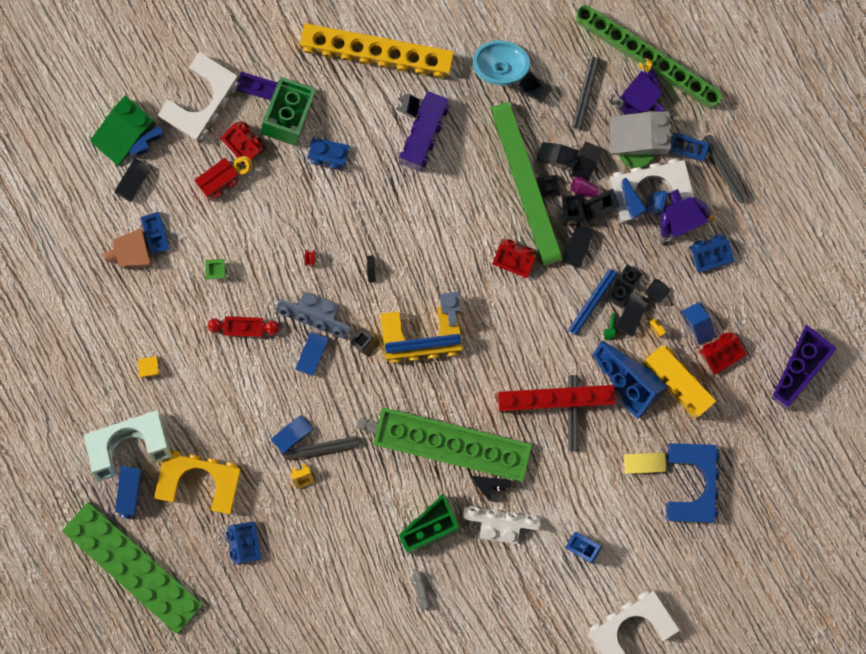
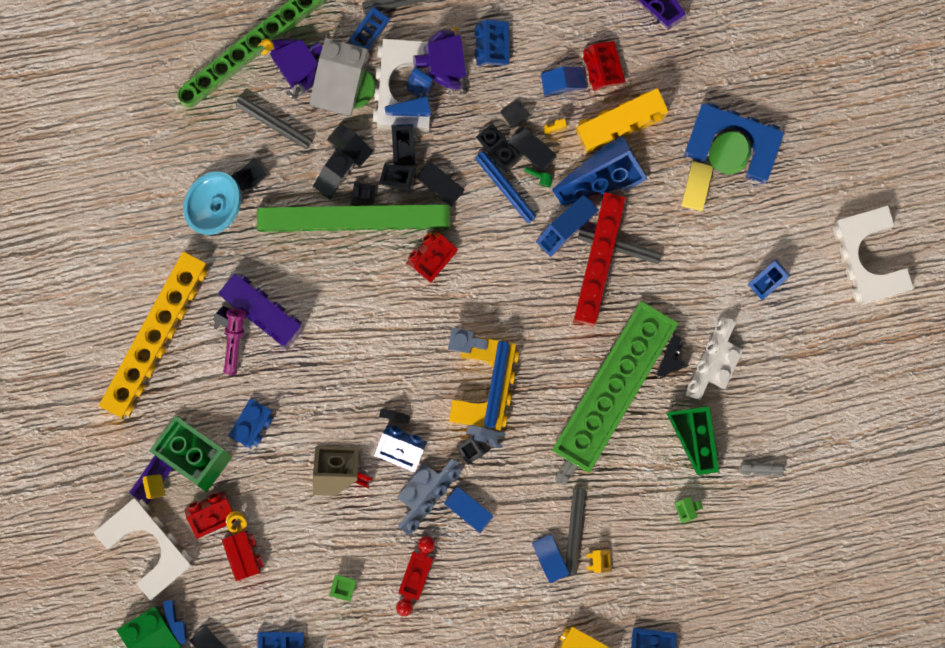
camera: 75 degrees left, 0 degrees up
(251, 89) = (153, 486): none -> yellow slope
(311, 231) = (334, 469): none -> dark tan slope
(346, 281) = (400, 448): none -> bracket
(368, 536) = (687, 509): none -> bright green tile
(377, 344) = (482, 434): none -> sand blue plate
(398, 114) = (234, 332): none -> magenta pin
(576, 362) = (567, 225): none -> blue slope
(583, 187) = (377, 158): magenta cone -> none
(682, 482) = (730, 152): none -> bright green tile

